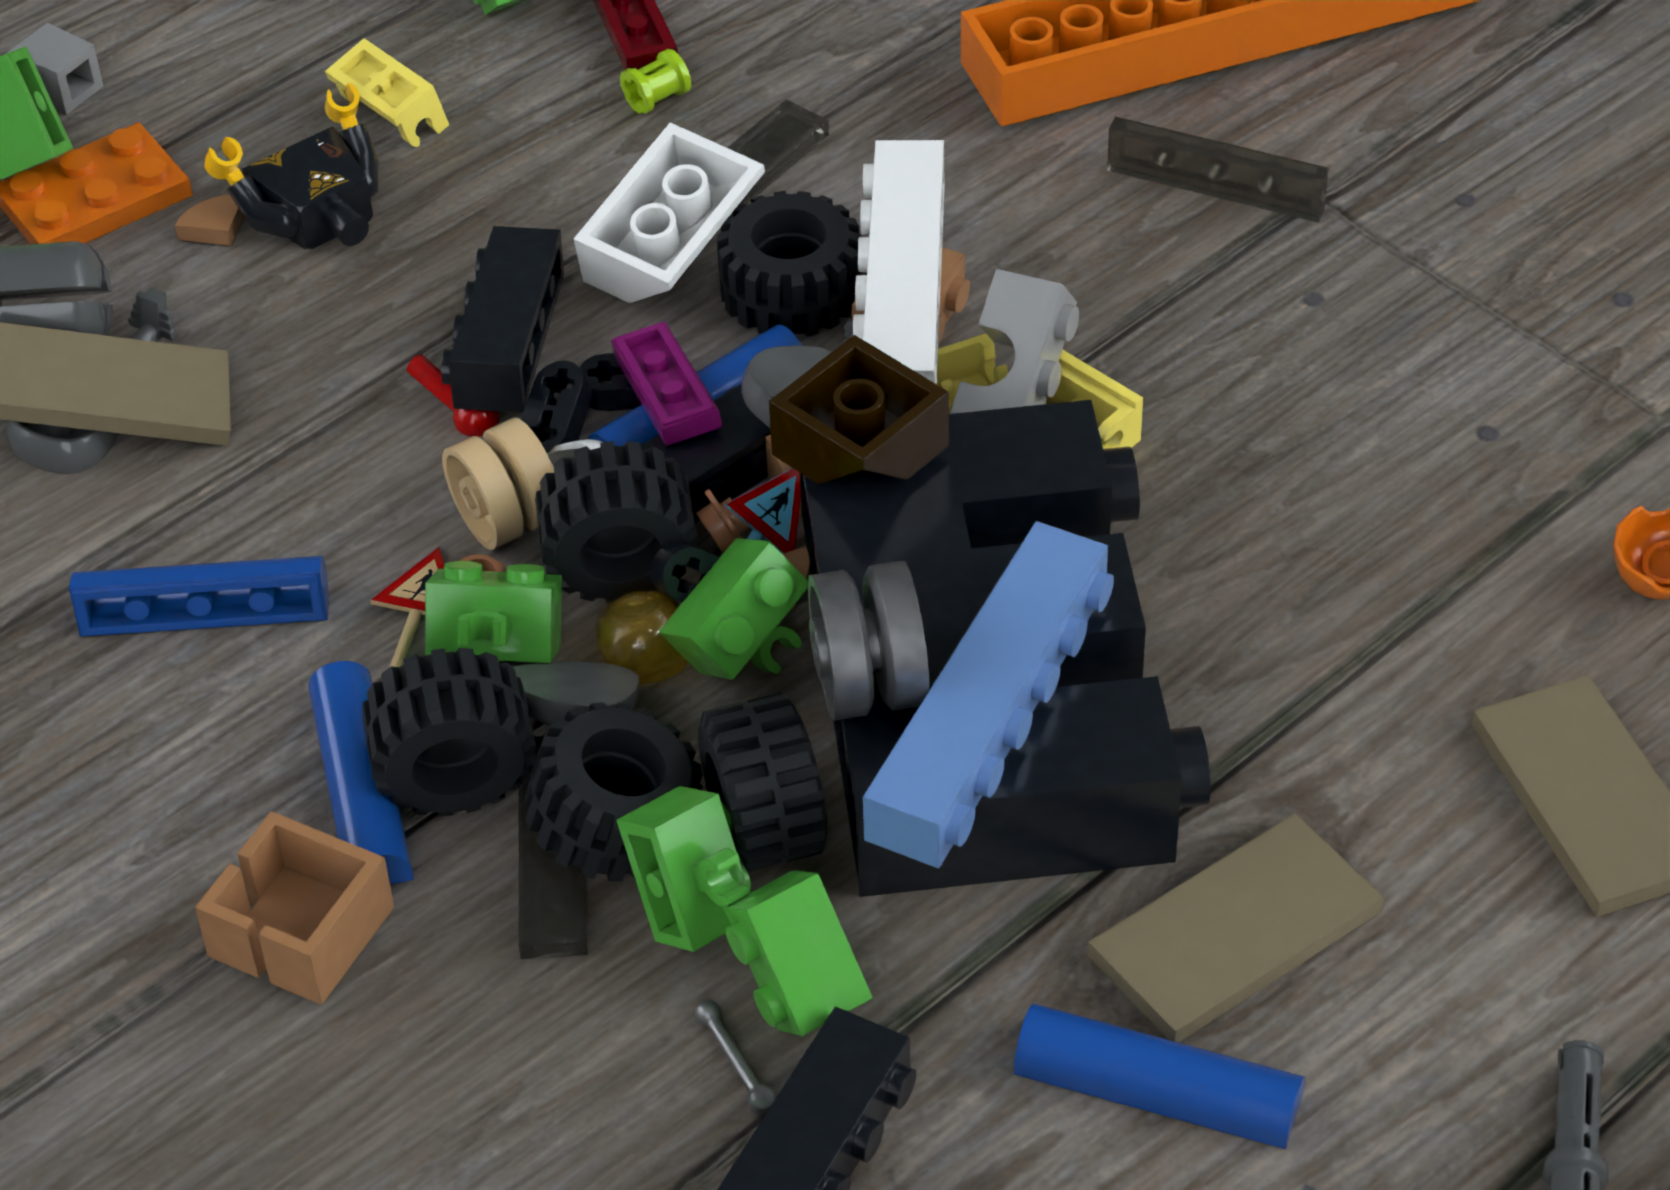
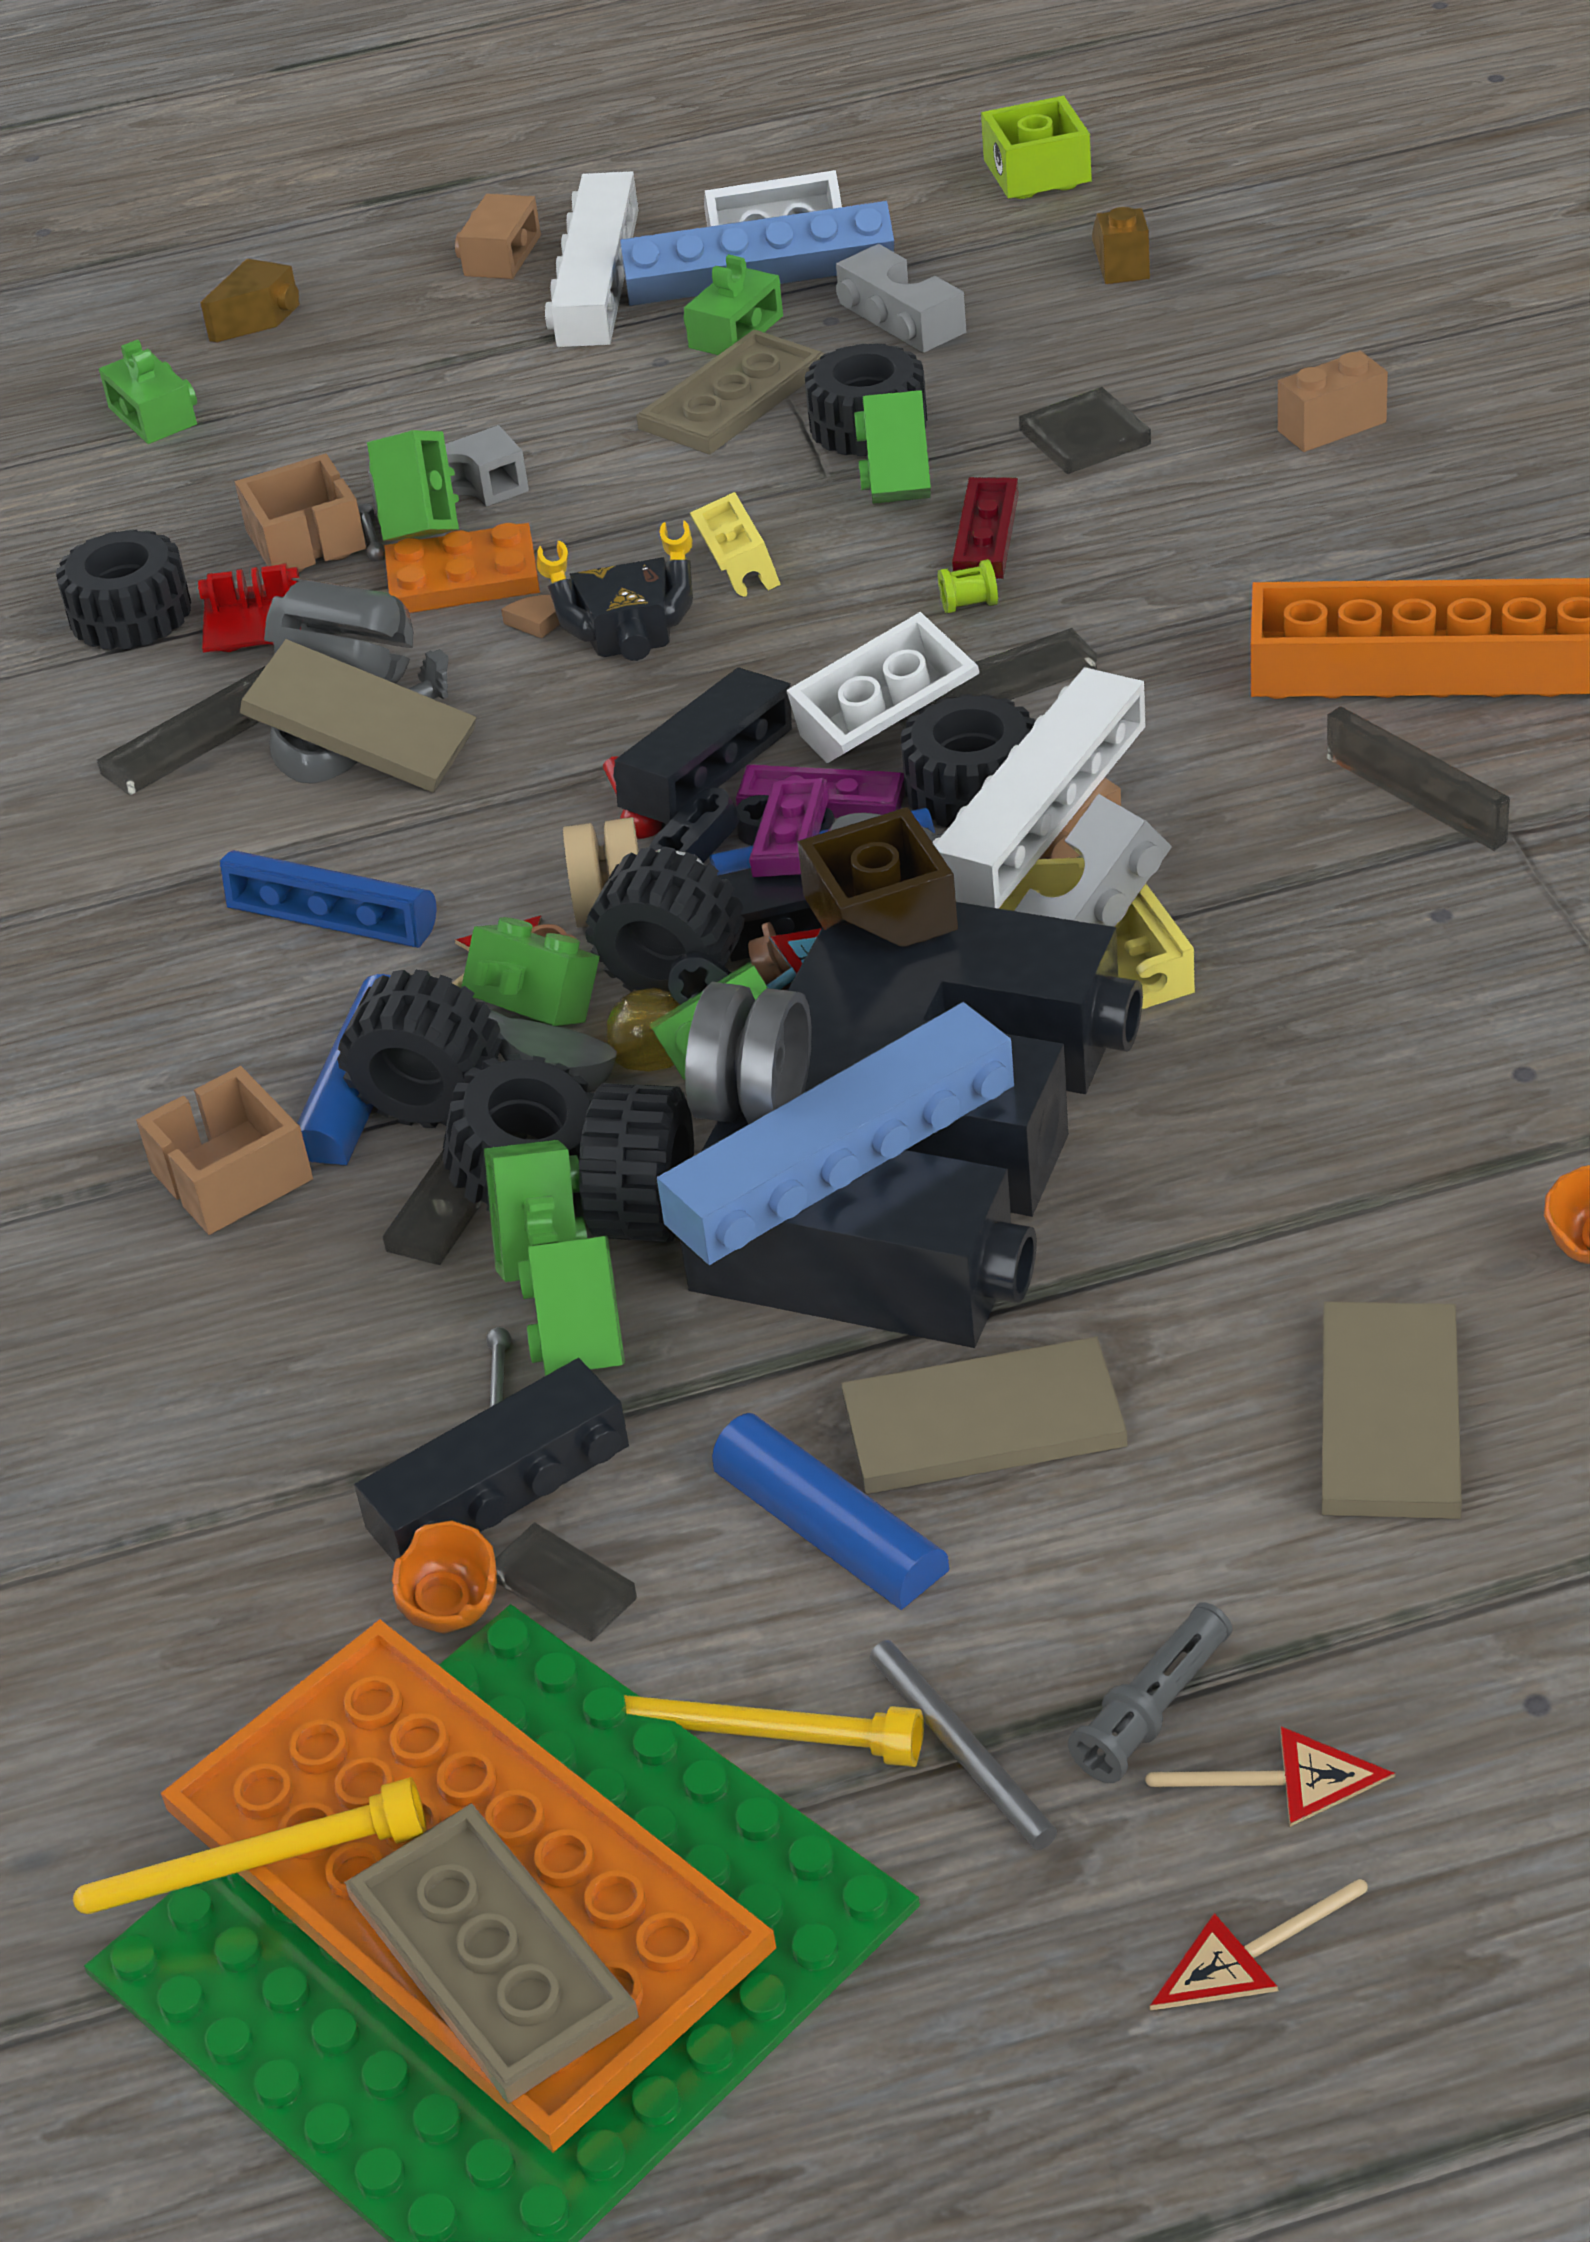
camera: 30 degrees right, 5 degrees down
(696, 324) = (848, 789): none -> magenta tile

